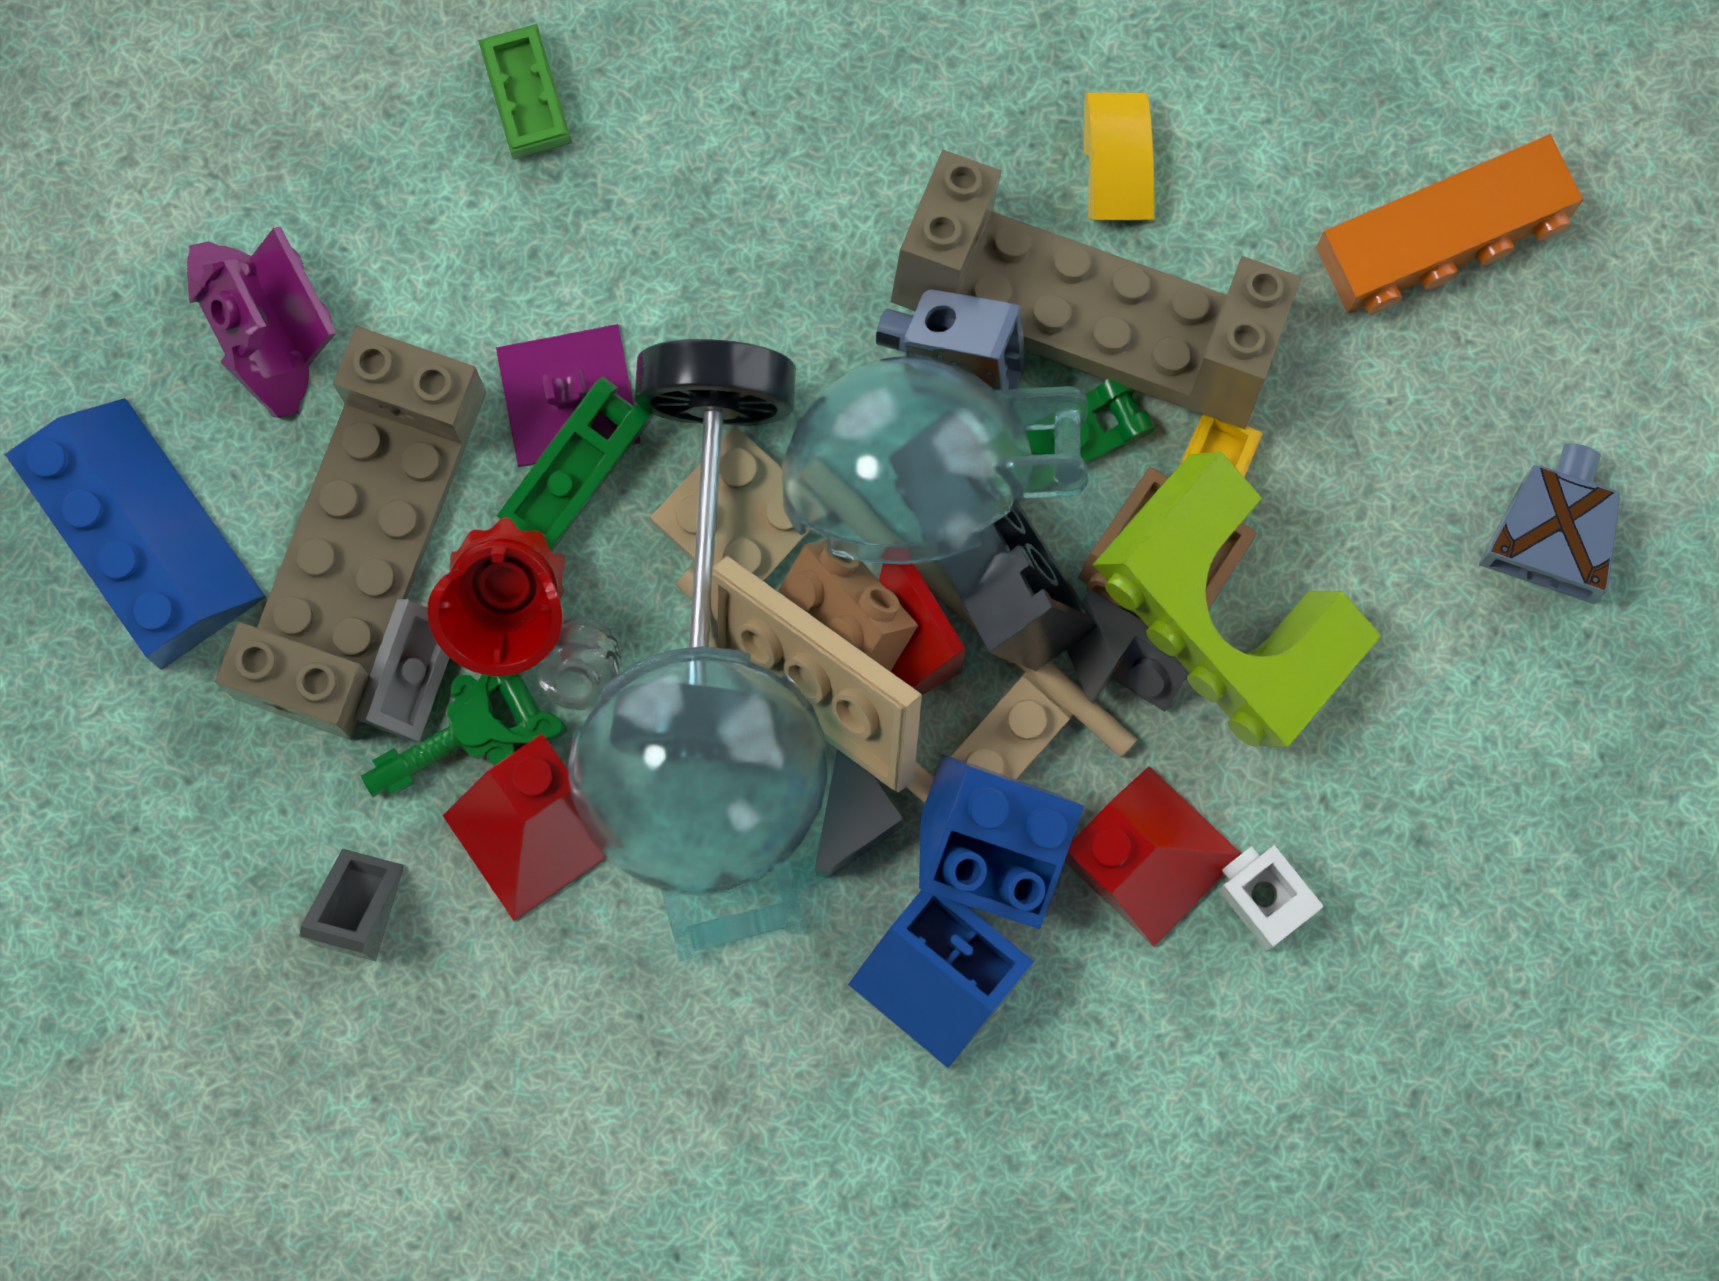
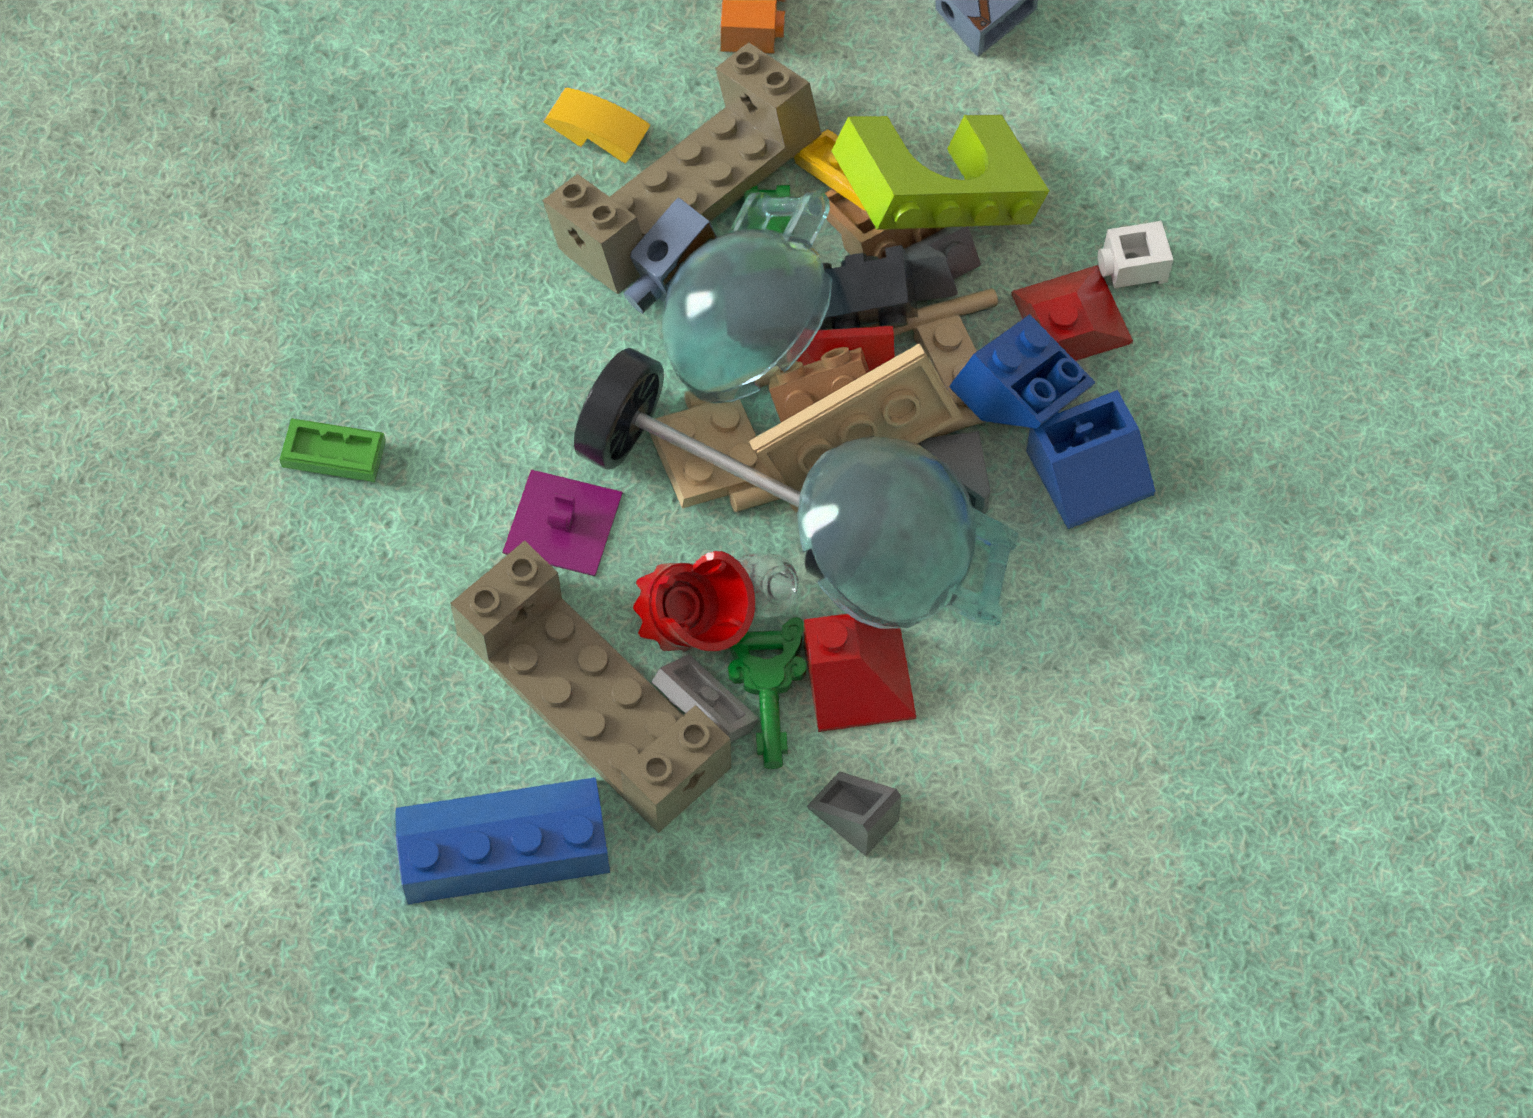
camera: 65 degrees left, 15 degrees down
(261, 316) = (392, 677): magenta piece -> none
(575, 464) = (617, 529): green plate -> none

